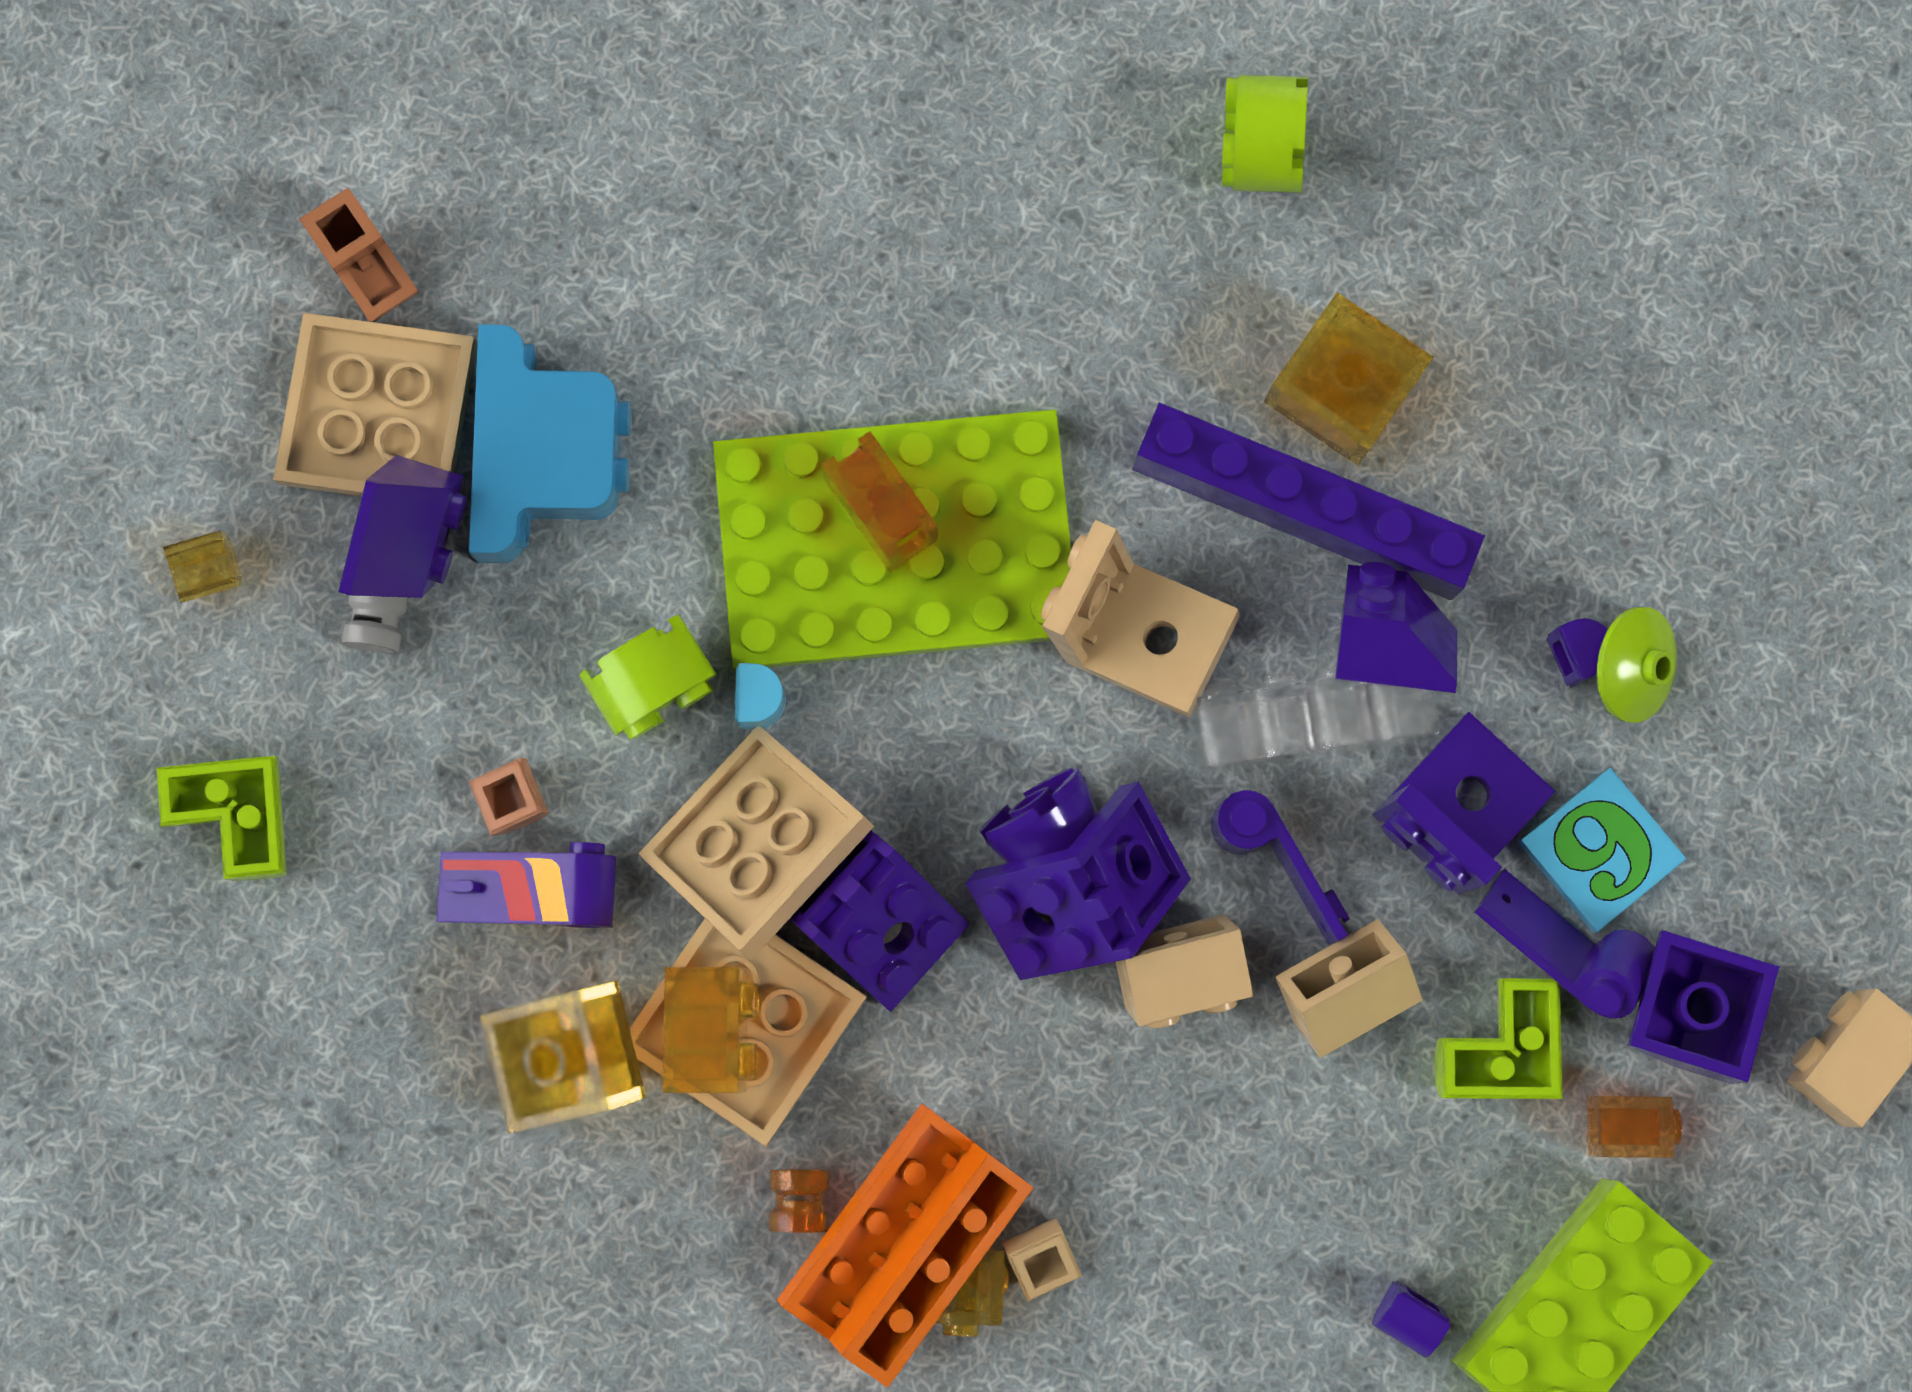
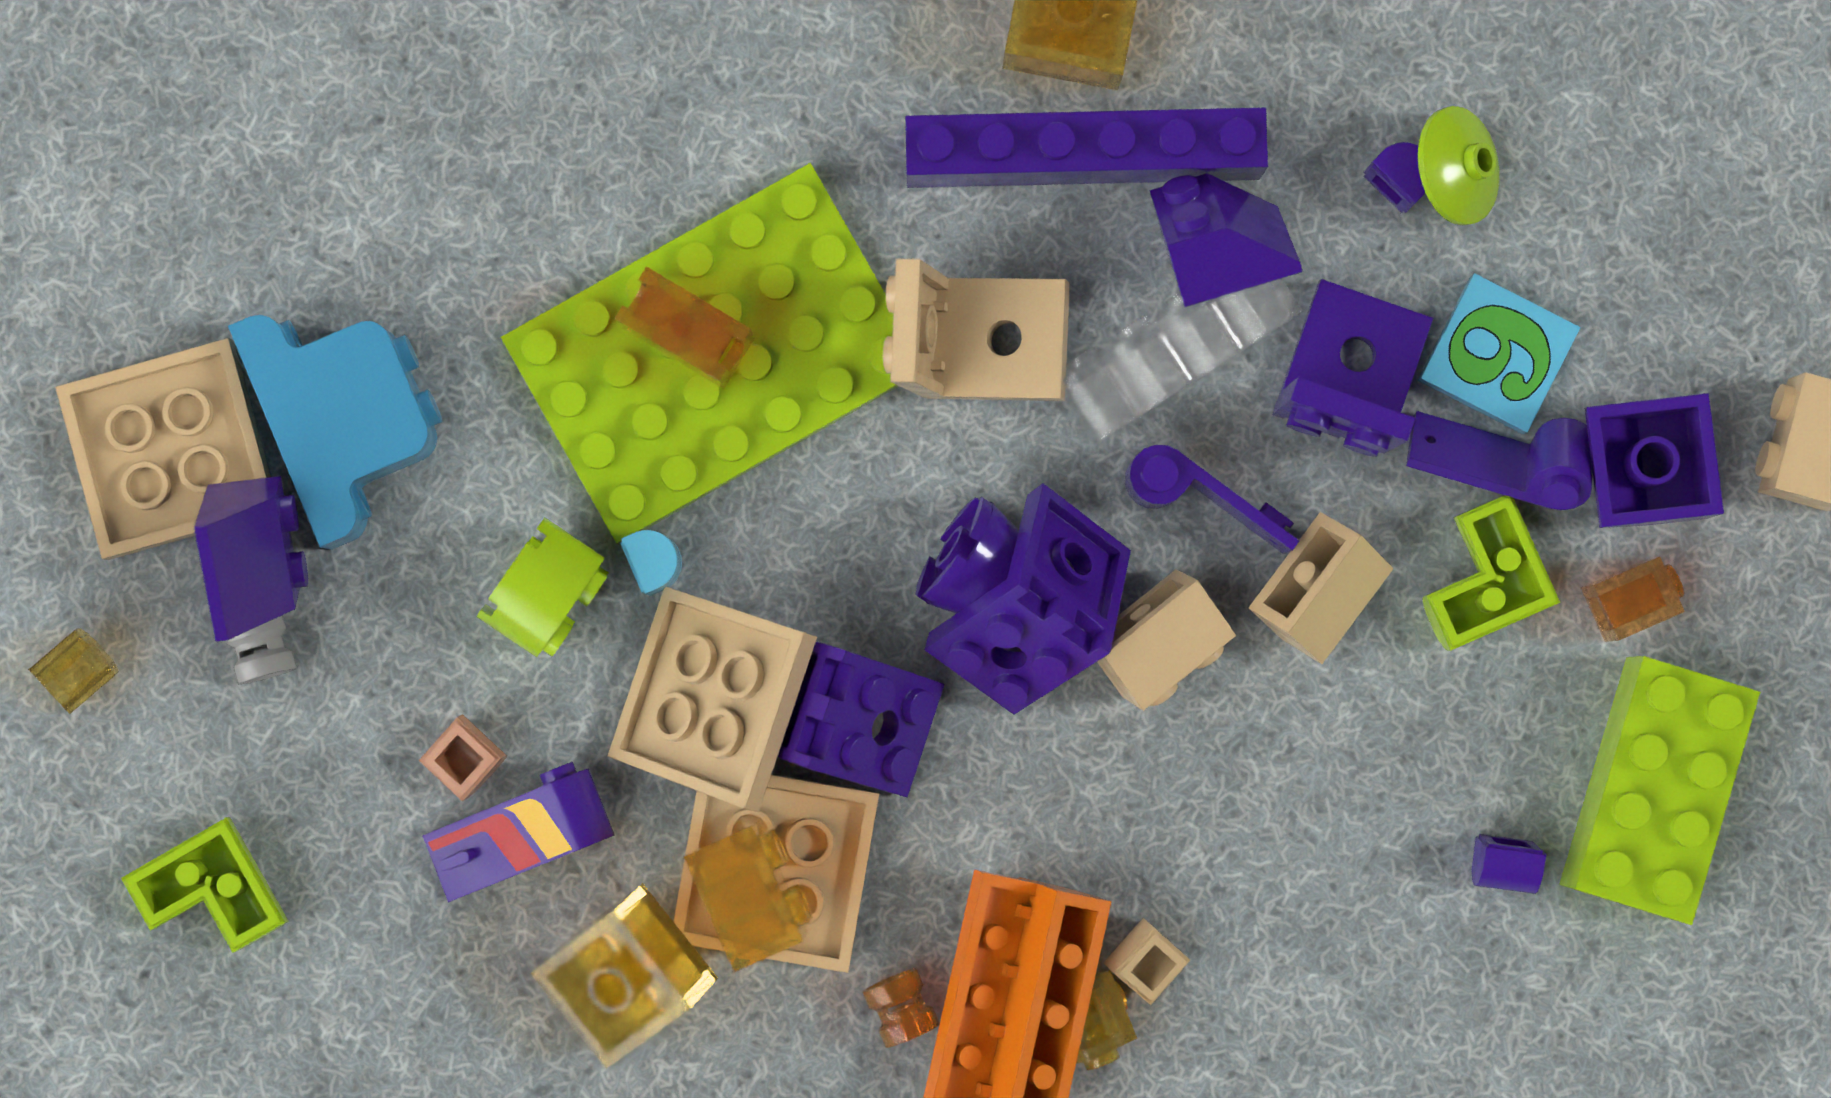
camera: 20 degrees left, 5 degrees up
(359, 255) = (83, 309): nougat brick -> none

